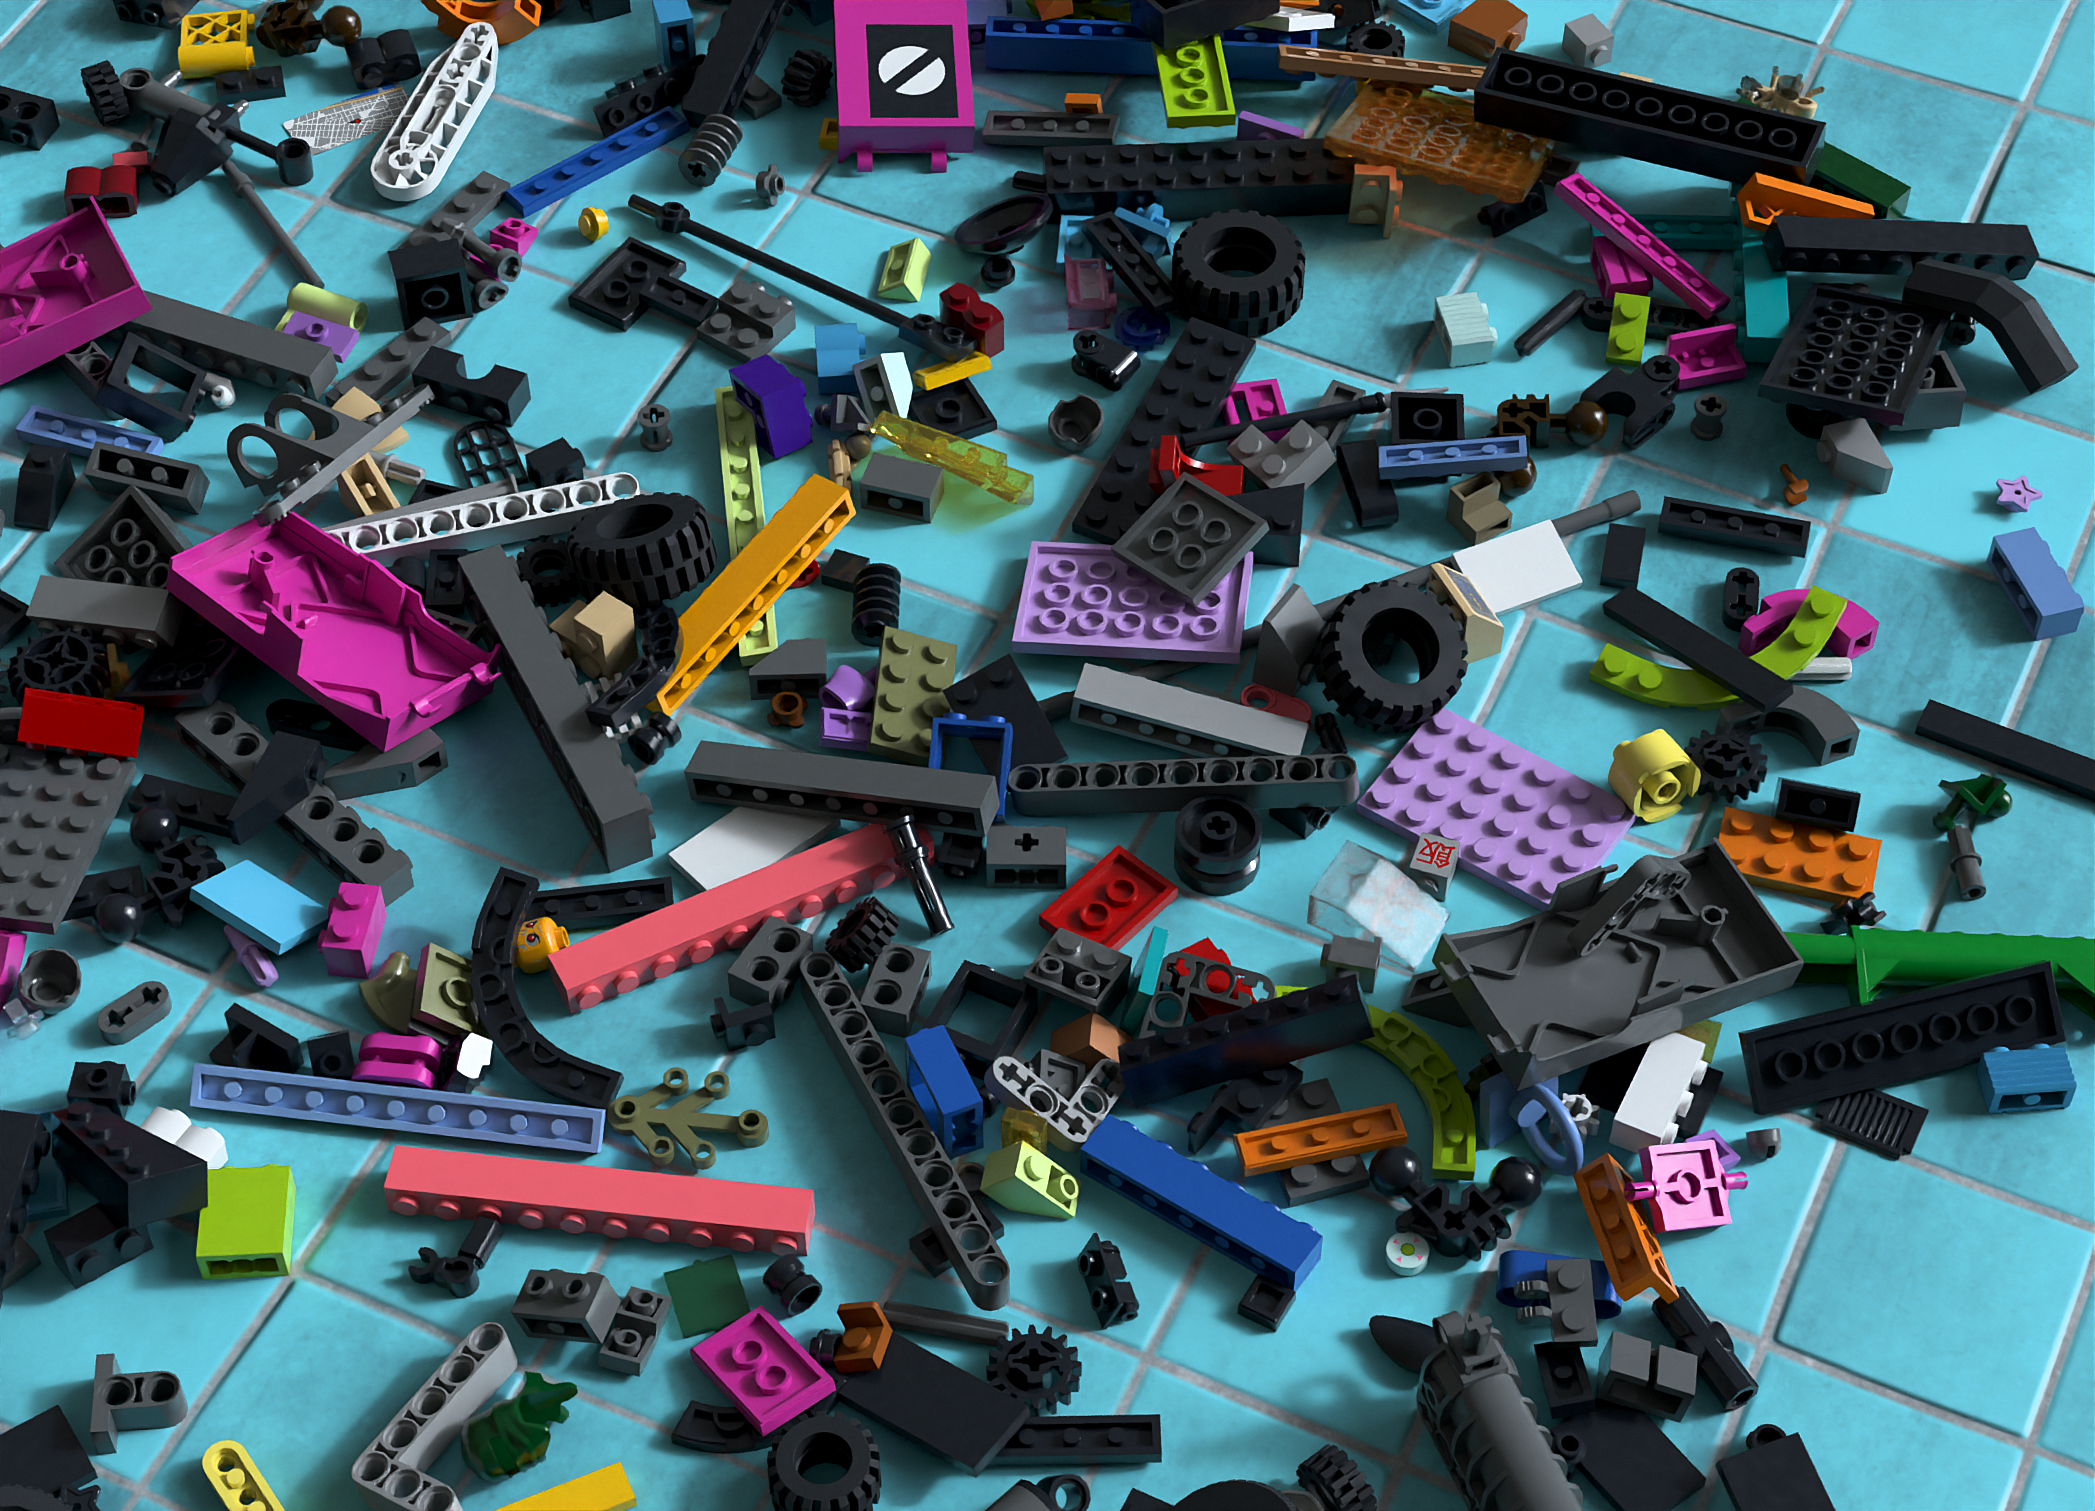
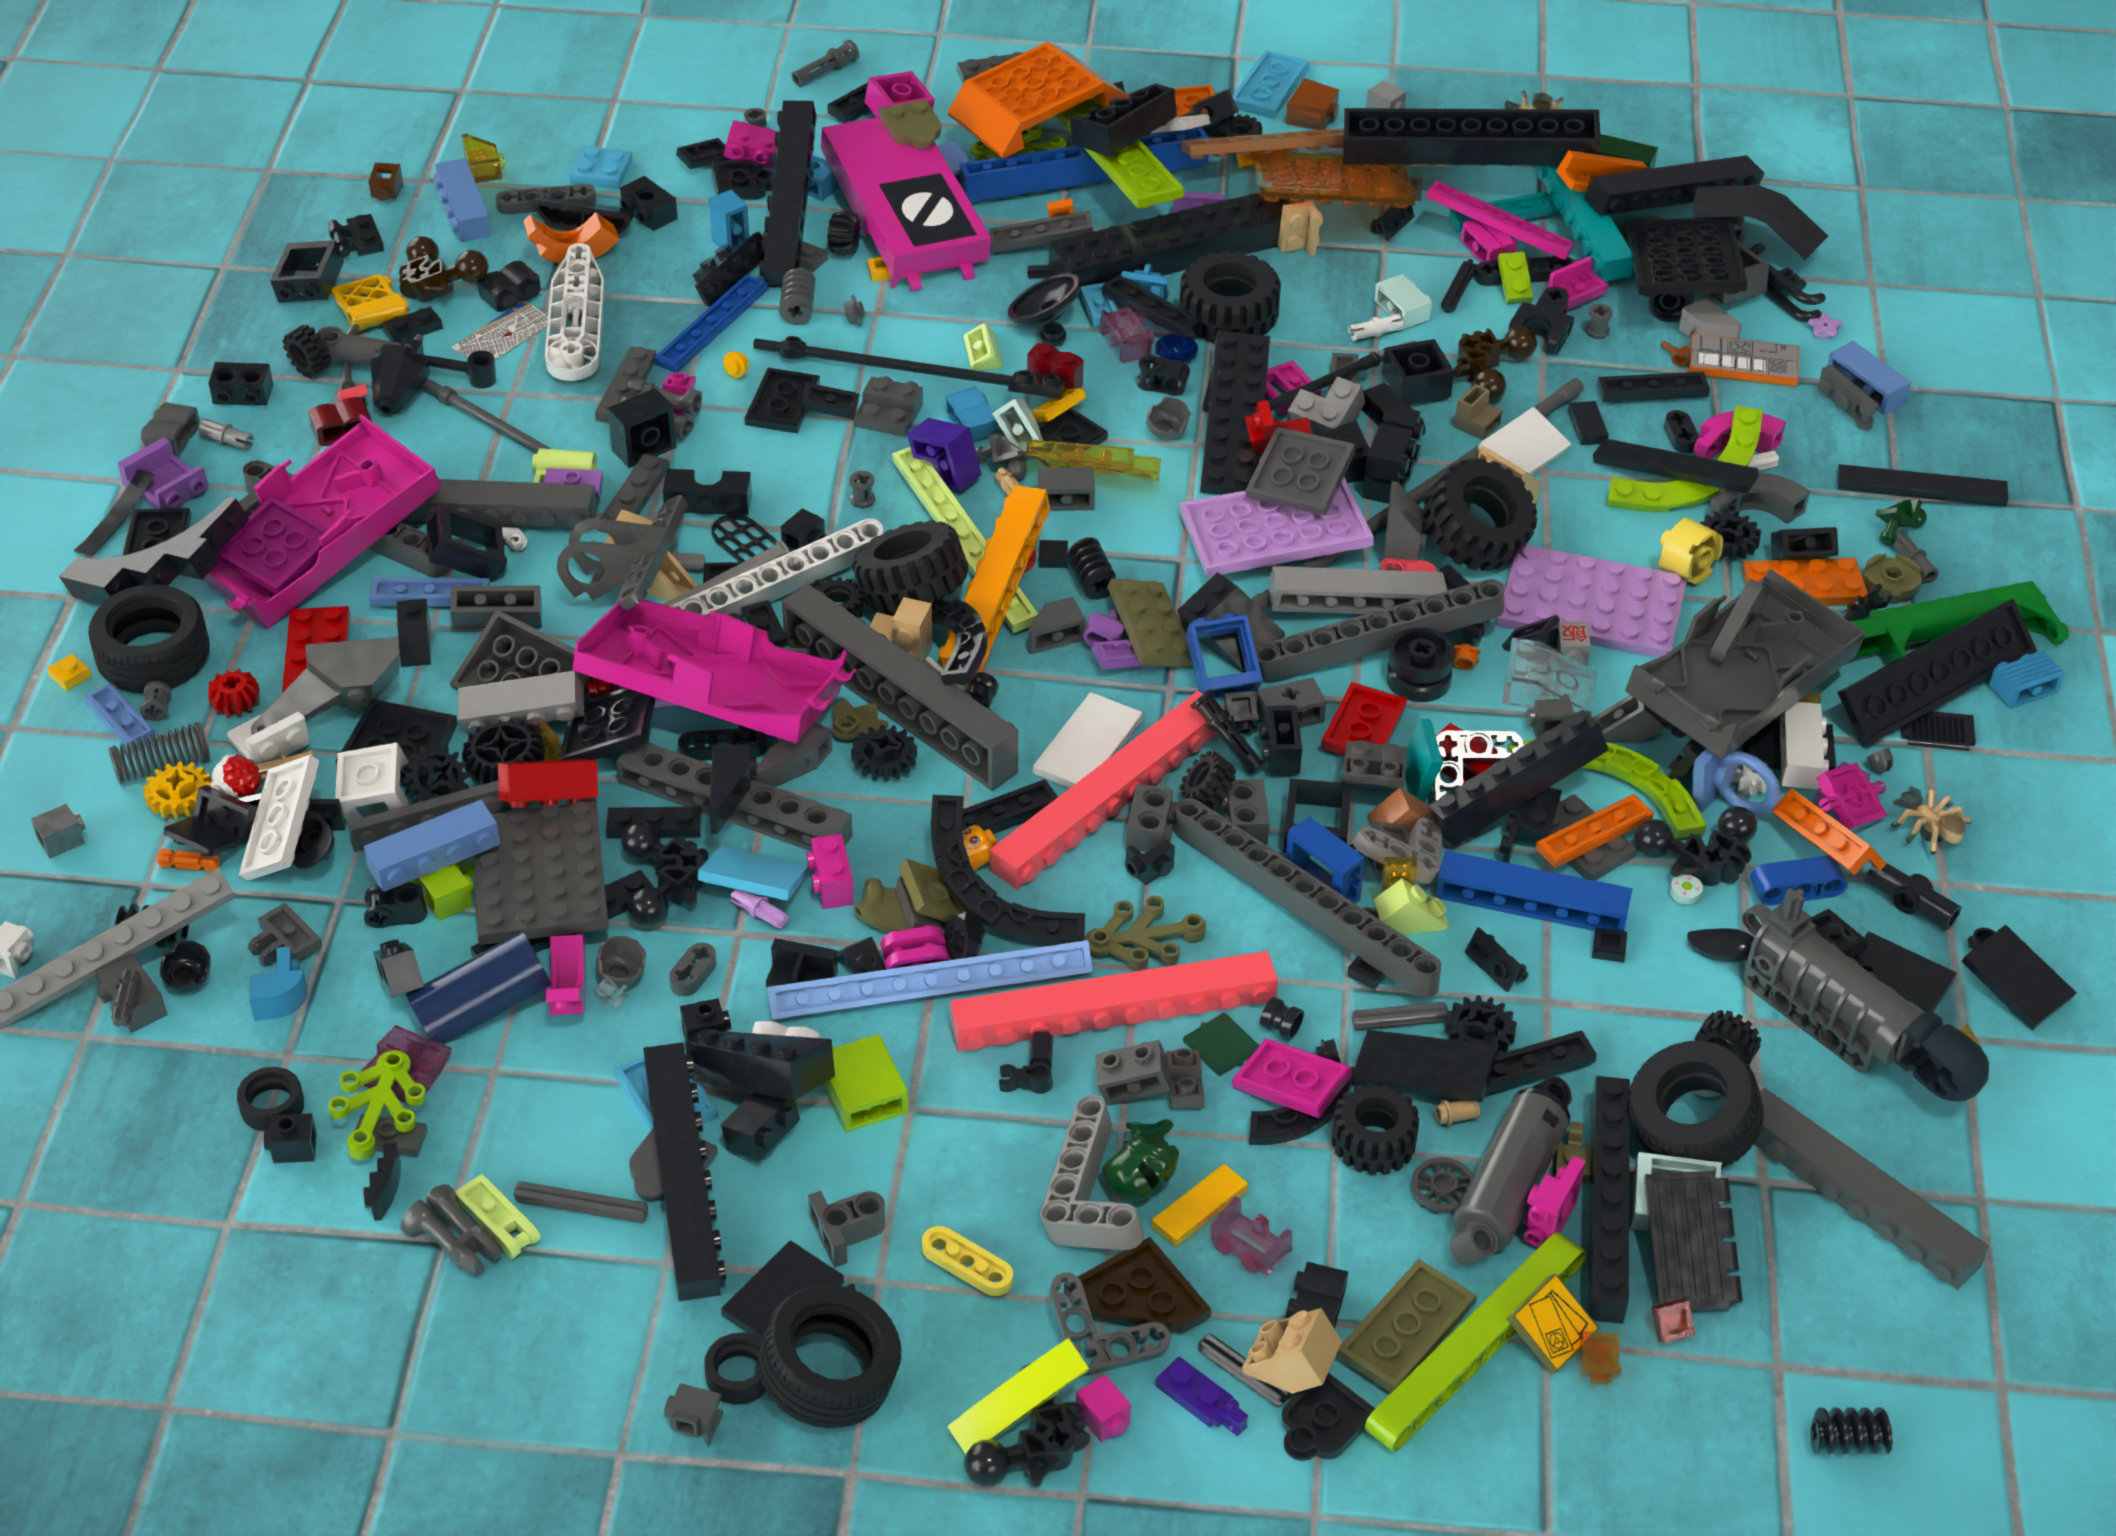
camera: 20 degrees left, 5 degrees down
(492, 735) = (851, 721): none -> olive plate
(498, 788) = (884, 753): none -> black gear
(787, 710) = (1064, 653): reddish brown plate -> none
(842, 788) = (1141, 688): dark grey brick -> none
(864, 1337) = (1350, 1036): dark orange bracket -> none
(944, 1479) = (1447, 1113): none -> tan pin
(986, 903) = (1282, 740): none -> black brick
(1285, 847) = (1466, 656): none -> orange plate
(1330, 540) = (1392, 452): none -> black piece
(1391, 841) = (1542, 631): none -> black slope
(1412, 356) = (1375, 327): none -> white pin
(1453, 457) = (1451, 380): medium blue plate -> none
(1569, 1302) = (1818, 886): dark grey hinge -> none
(1646, 1378) = (1889, 921): dark grey piece -> none
(1790, 1254) = (1934, 822): none -> animal
(1880, 516) = (1744, 360): none -> tile
(1915, 899) = (1882, 569): none -> olive plate
(1984, 425) = (1787, 283): none -> black piece
(1991, 605) = (1848, 397): none -> dark grey plate

